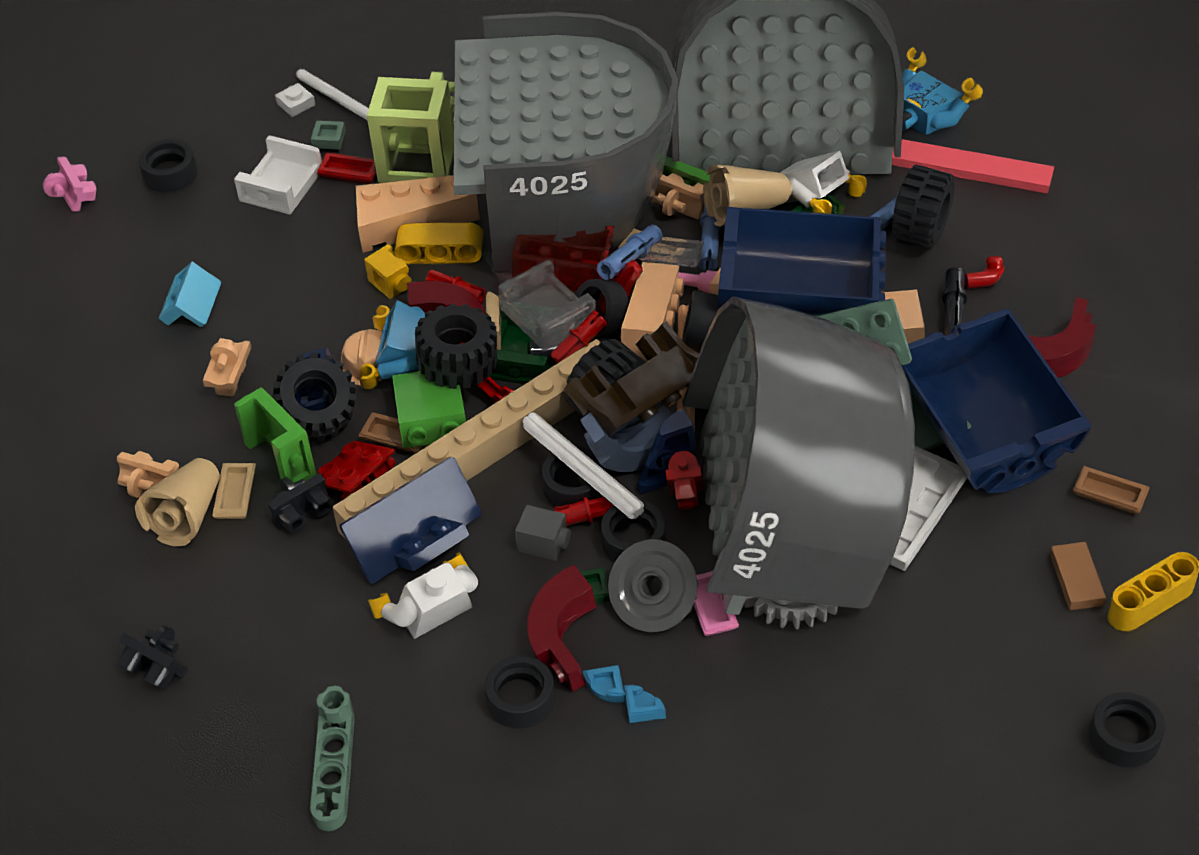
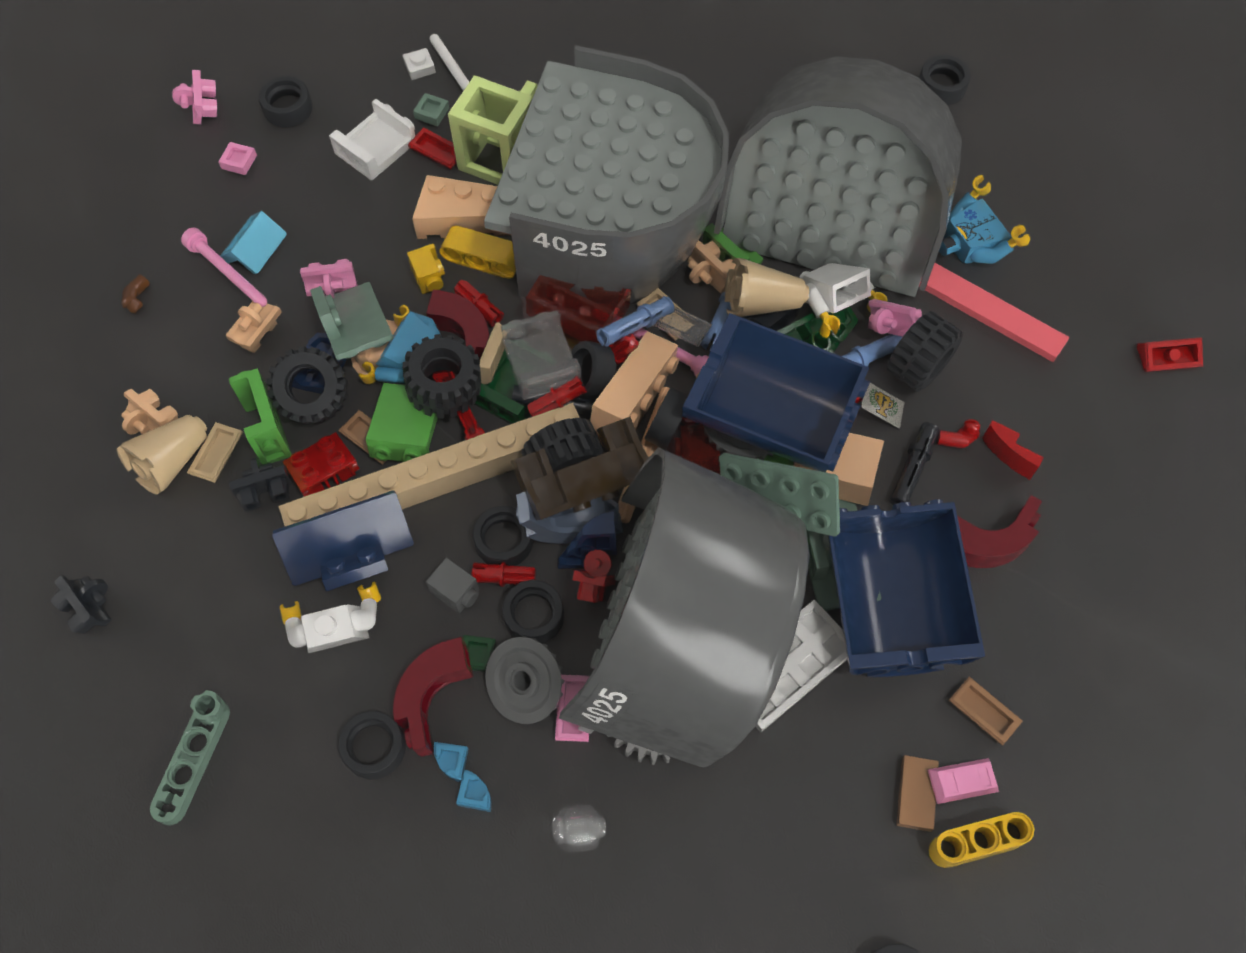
camera: 15 degrees right, 15 degrees up
(76, 375) = (132, 291): none -> reddish brown arm
(128, 311) = (197, 242): none -> bright pink piece
(138, 227) = (237, 158): none -> bright pink plate
(288, 306) = (330, 277): none -> bright pink hips
(333, 328) = (352, 320): none -> sand green bracket
(583, 466) = (510, 534): white axle -> none
(762, 697) = (578, 828): none -> clear head
(877, 189) = (891, 317): none -> bright pink hips
(903, 268) = (883, 405): none -> clear smoke sticker
(1043, 274) = (1003, 444): none -> red slope
(1116, 551) = (963, 781): none -> bright pink tile
(1154, 156) = (1171, 354): none -> red slope

